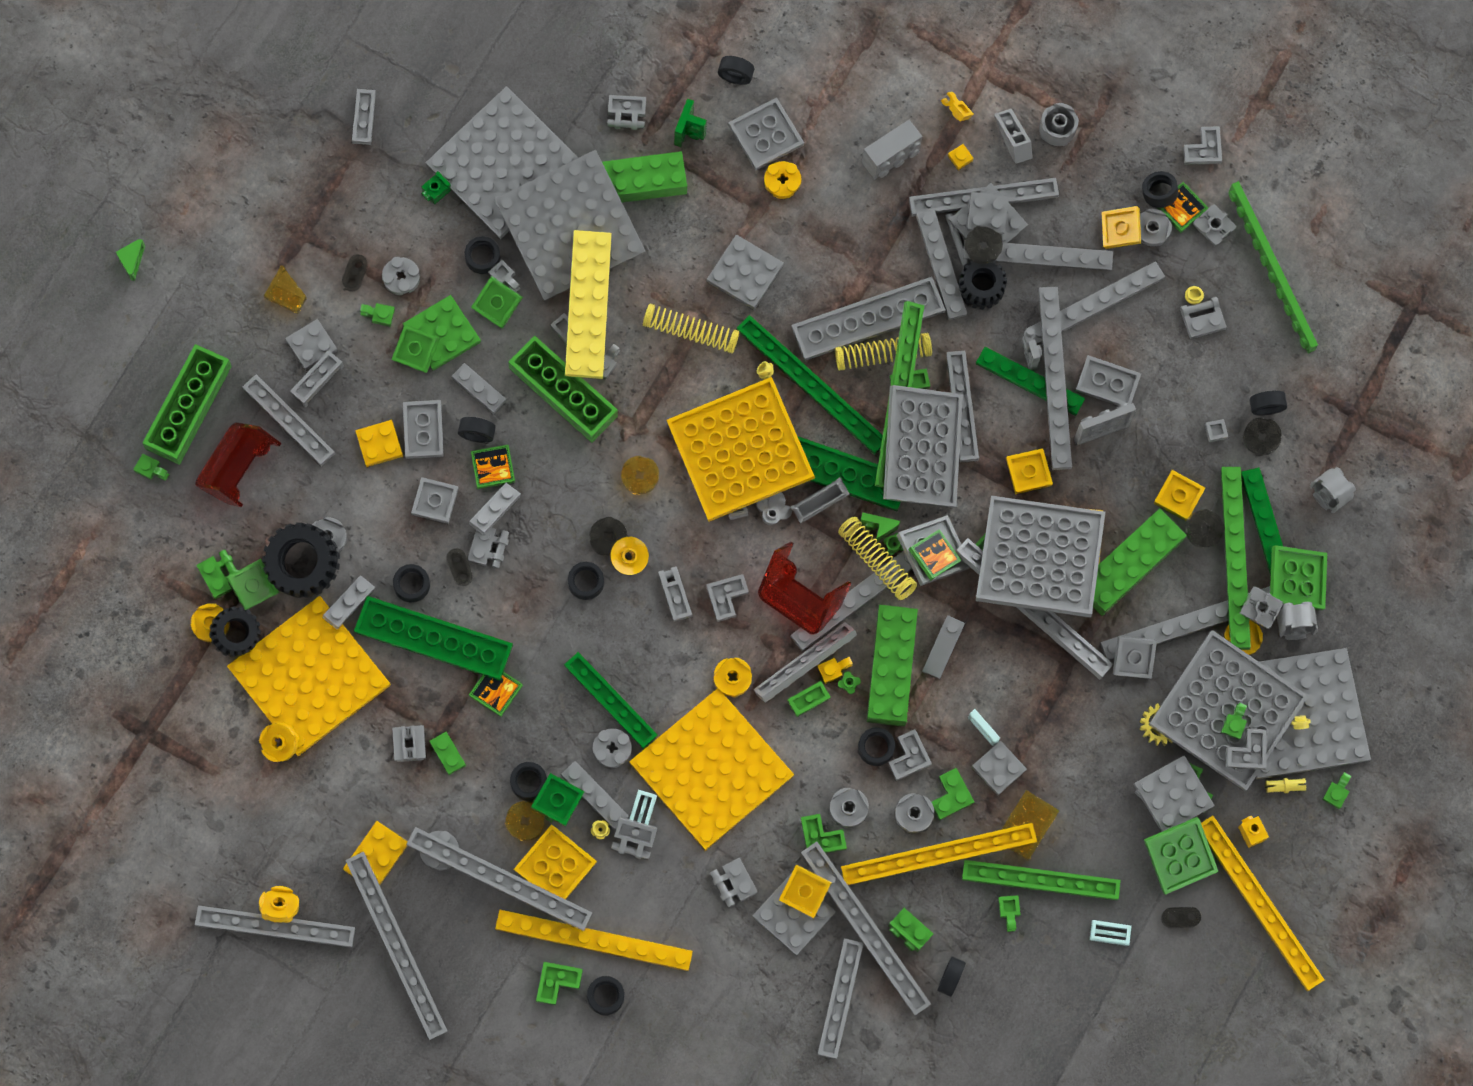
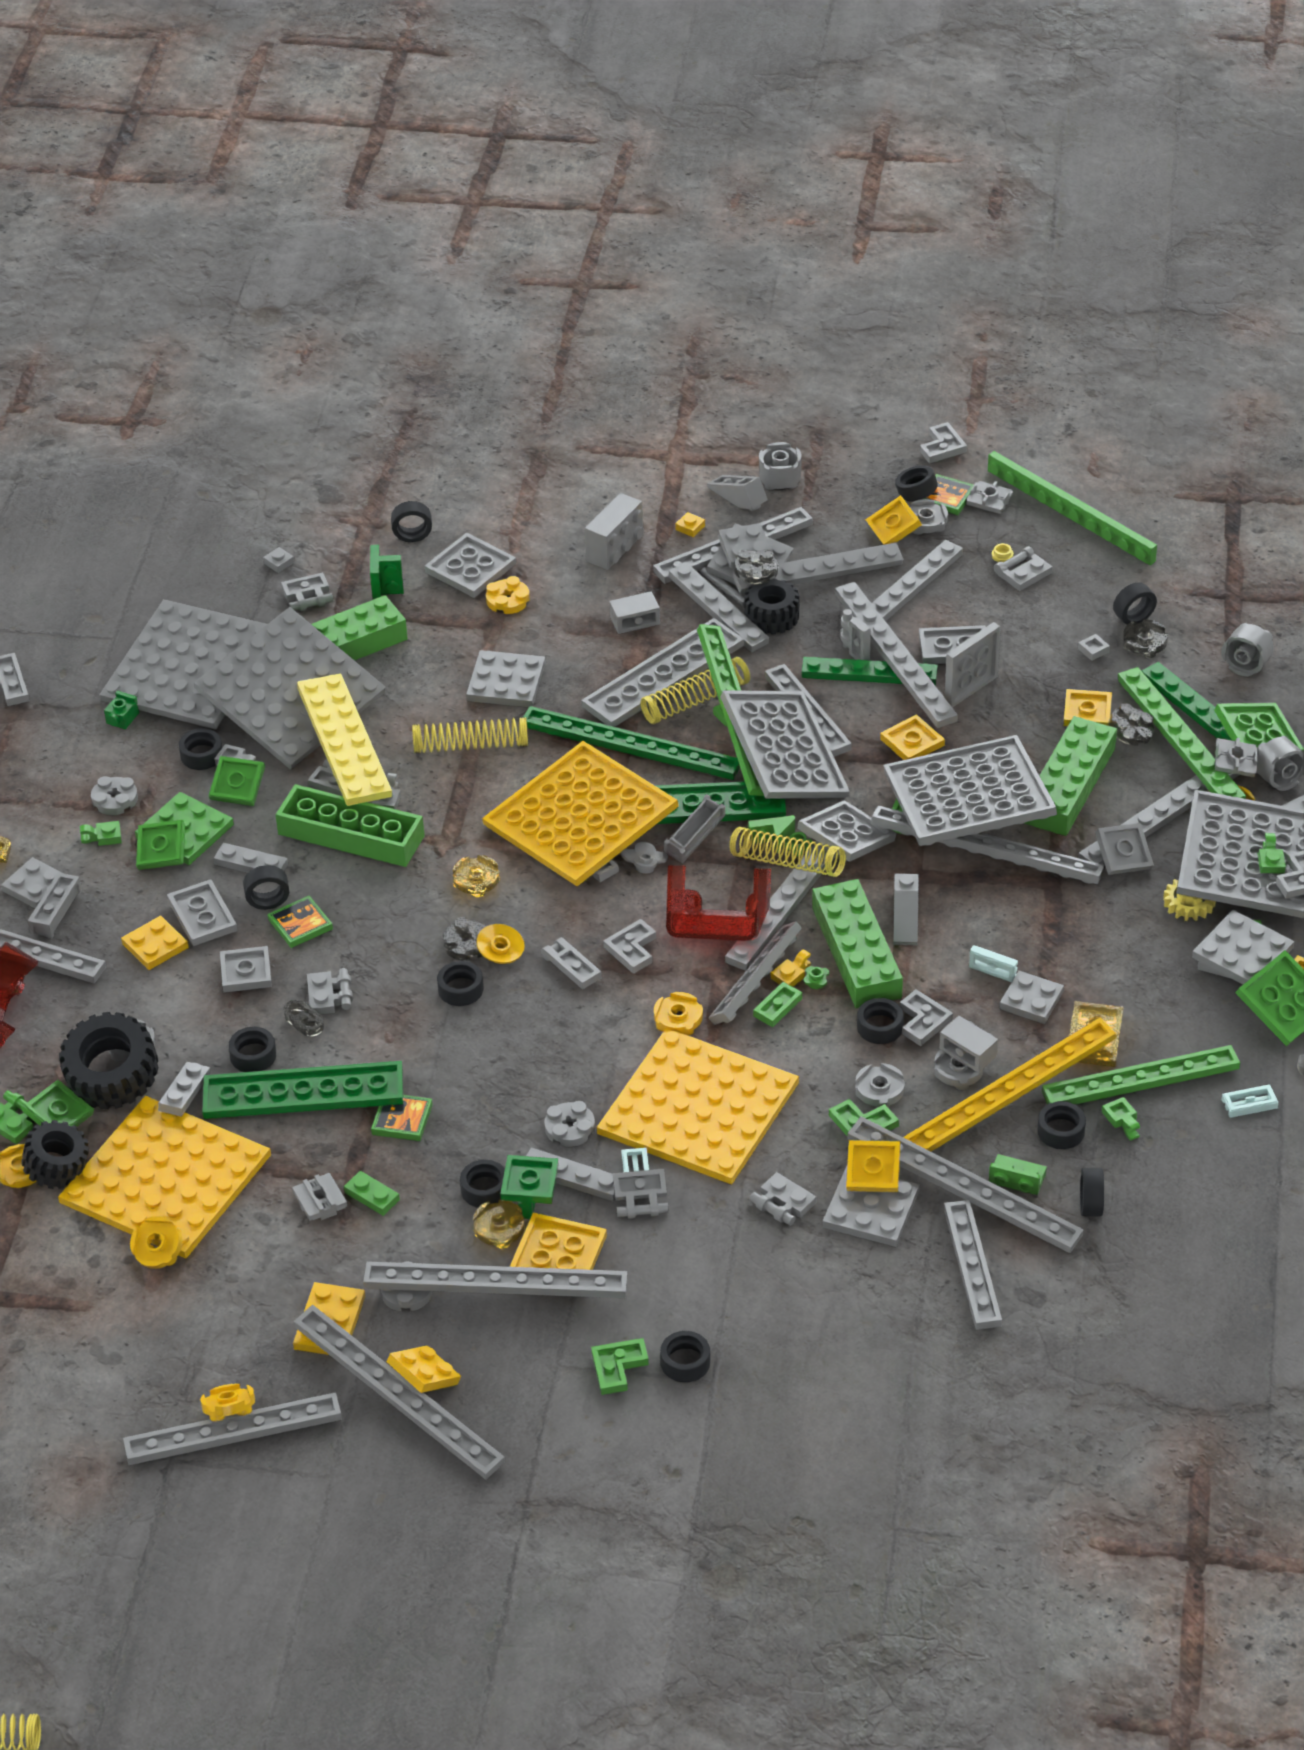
camera: 15 degrees left, 30 degrees down
(354, 273) = (59, 806): clear smoke plate -> none
(421, 933) = (423, 1369): none -> yellow plate
(494, 509) = (320, 952): light grey plate -> none
(594, 940) = (641, 1311): yellow plate -> none
(595, 829) = (594, 1201): light yellow plate -> none
(610, 700) = (545, 1079): green plate -> none
(618, 63) = (278, 560): none -> light grey plate
(765, 370) = (570, 743): light yellow plate -> none
(873, 243) = (635, 612): none -> light grey brick
(927, 804) = (968, 1043): none -> light grey brick
(935, 554) = (850, 828): tile -> none
(947, 900) = (1059, 1139): none -> black tyre
(956, 798) = (1006, 1035): bright green plate -> none
(958, 108) = (668, 488): yellow plate -> none

